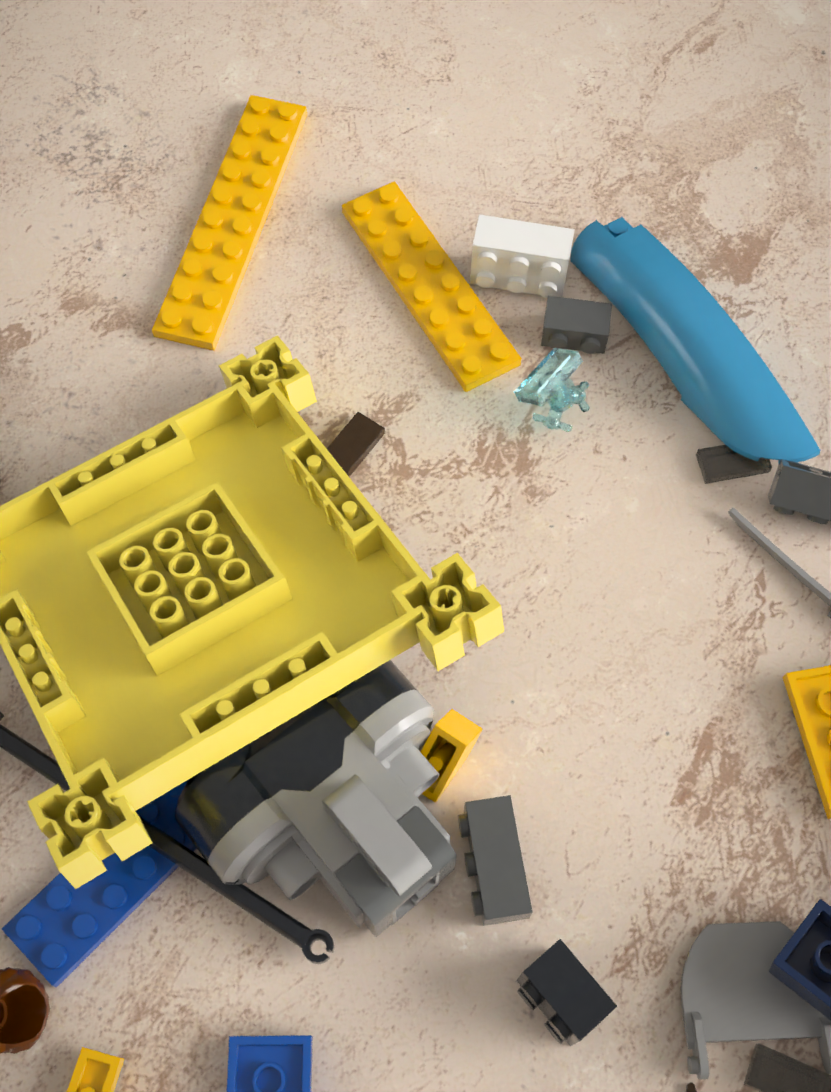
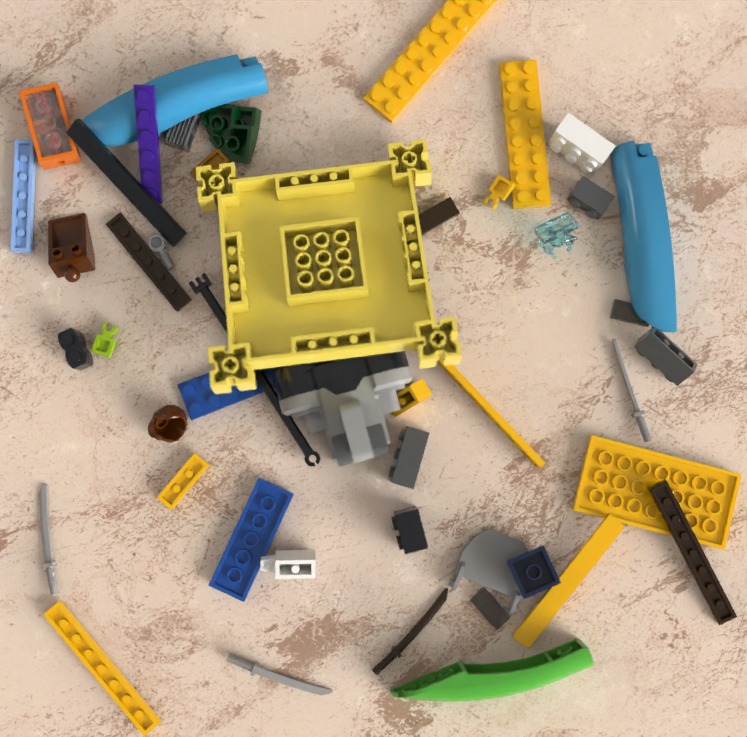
camera: 20 degrees right, 20 degrees up
(431, 369) = (499, 190): none -> yellow plate
(595, 713) = (493, 414): none -> yellow tile

